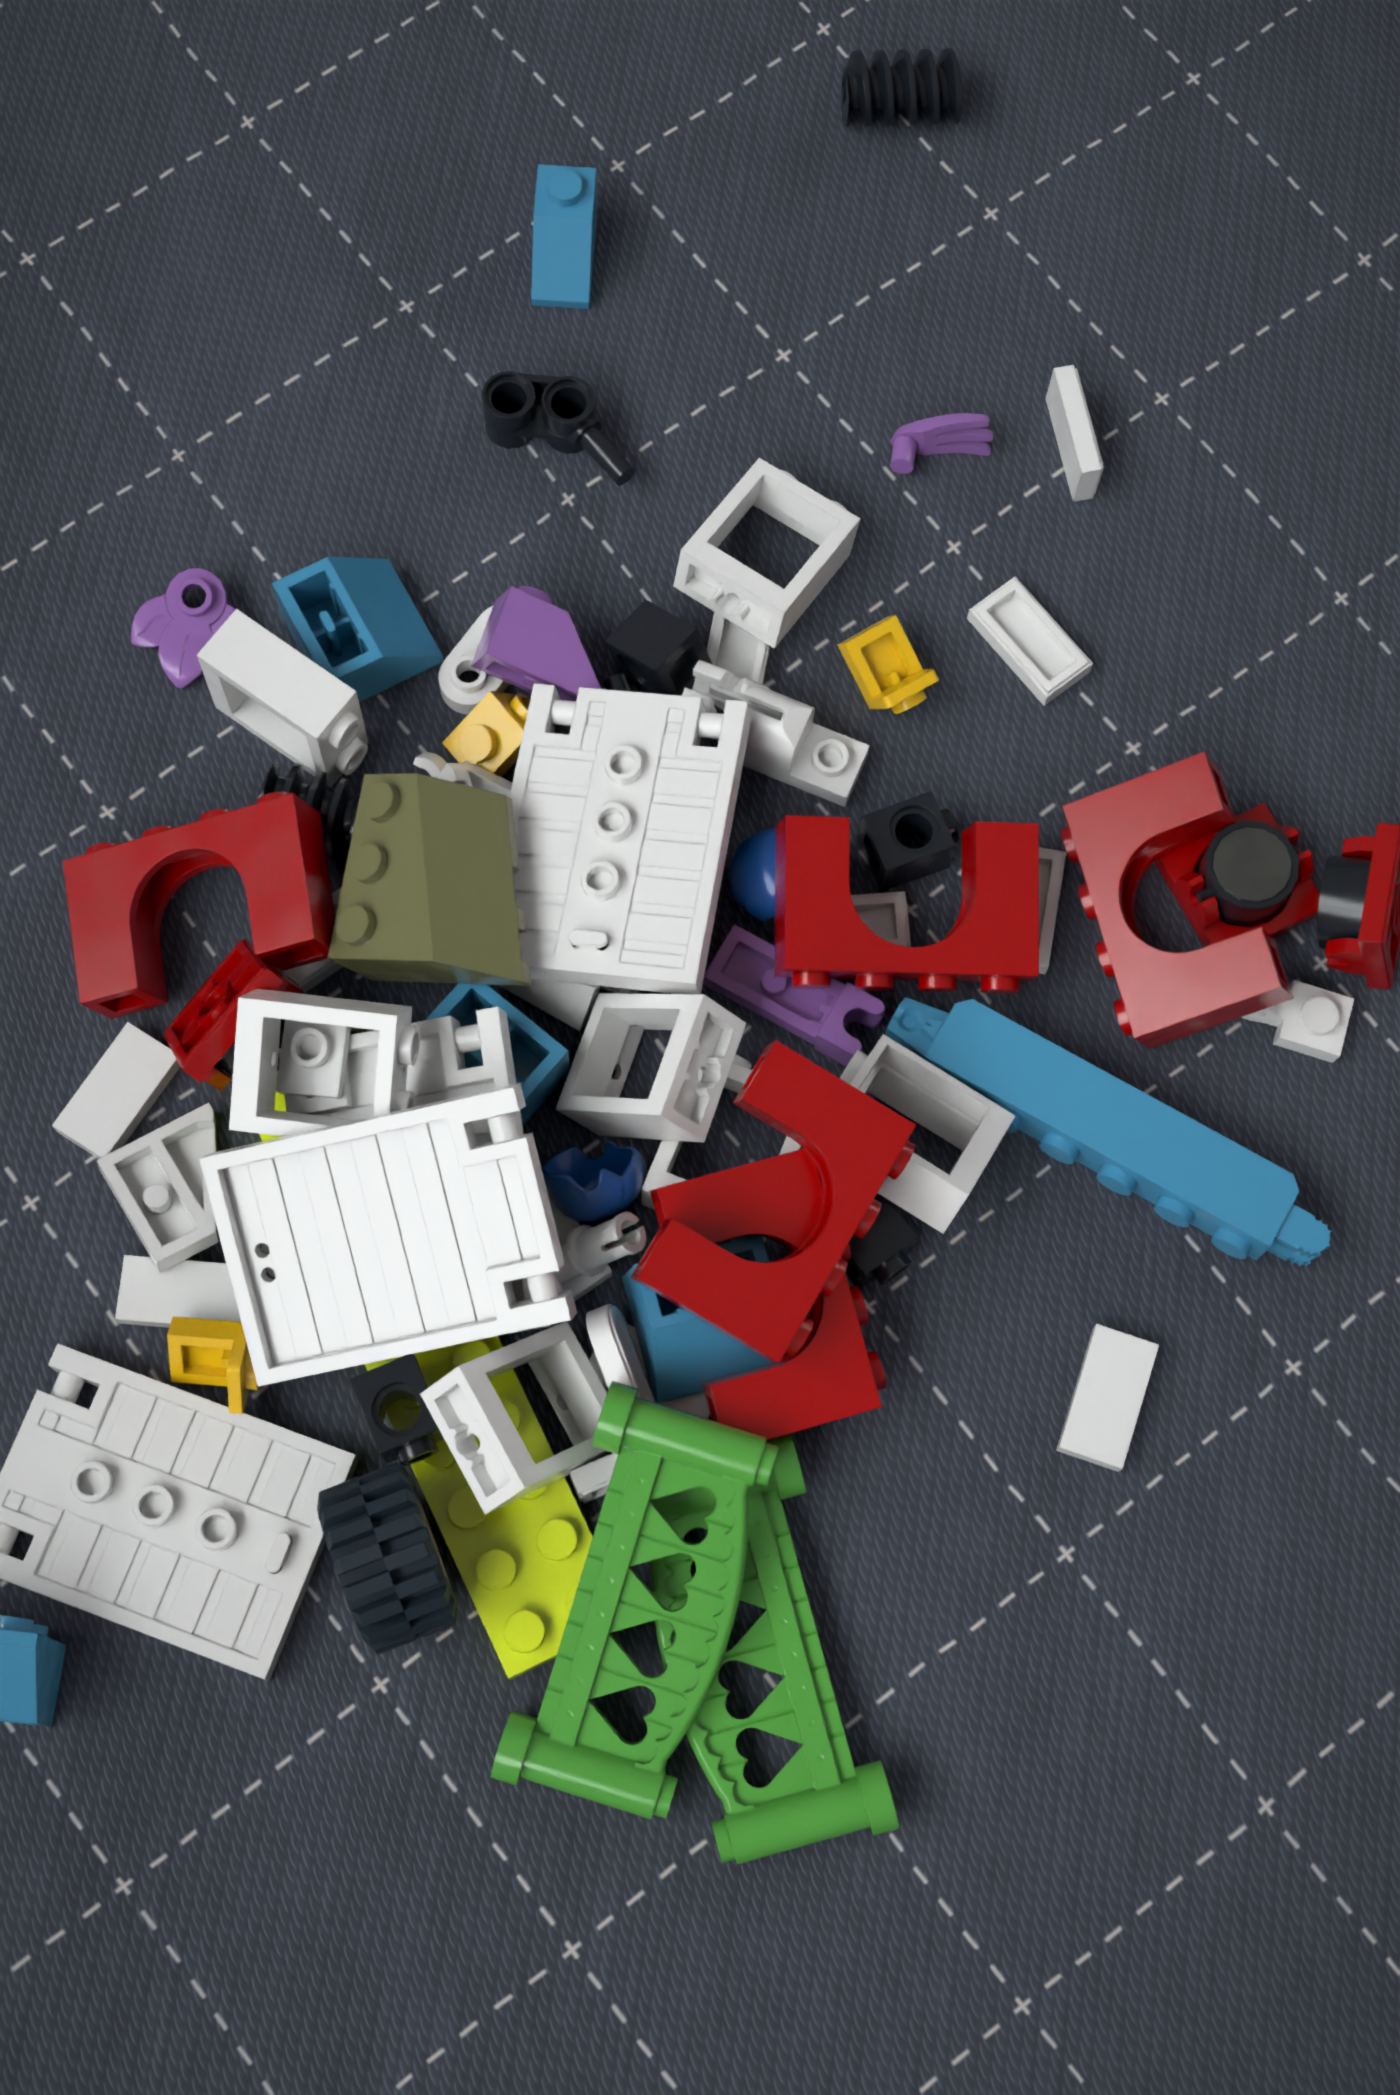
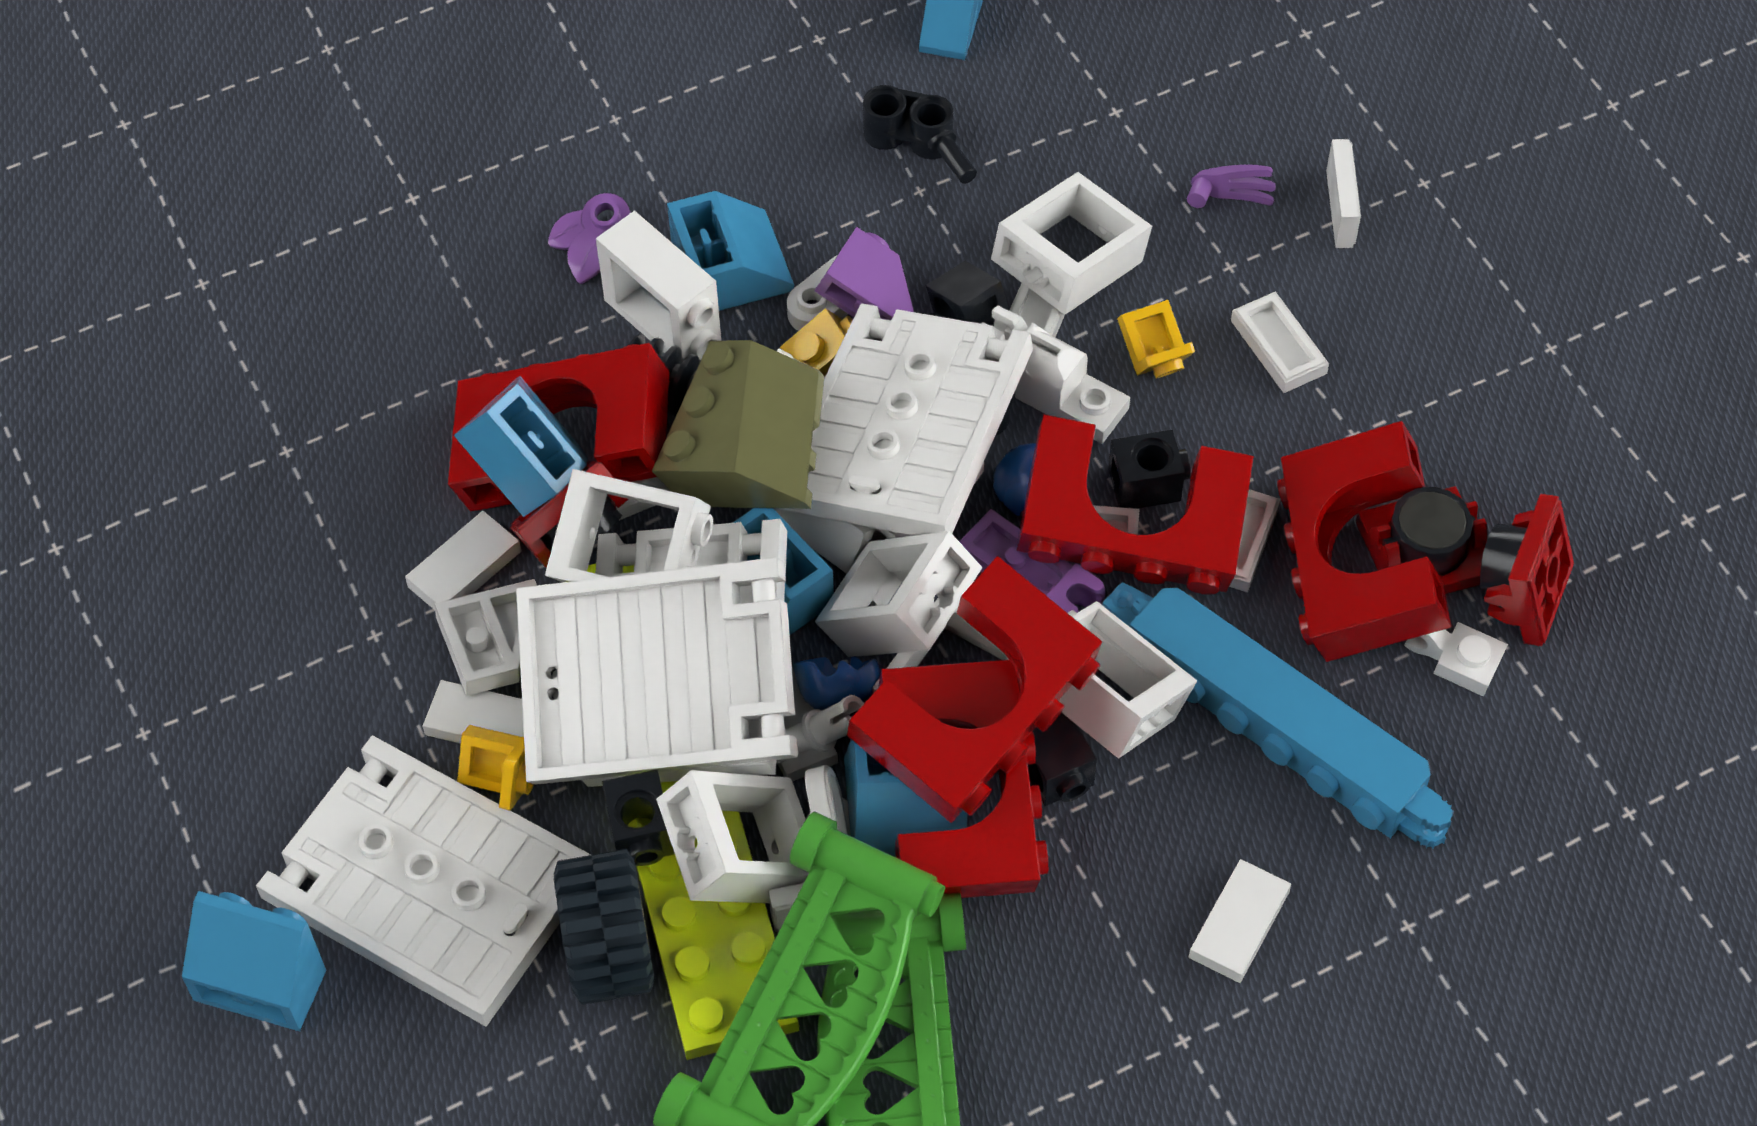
camera: 15 degrees right, 15 degrees down
(166, 948) = (522, 447): none -> dark azure slope
(313, 1059) = (627, 537): white bracket -> none

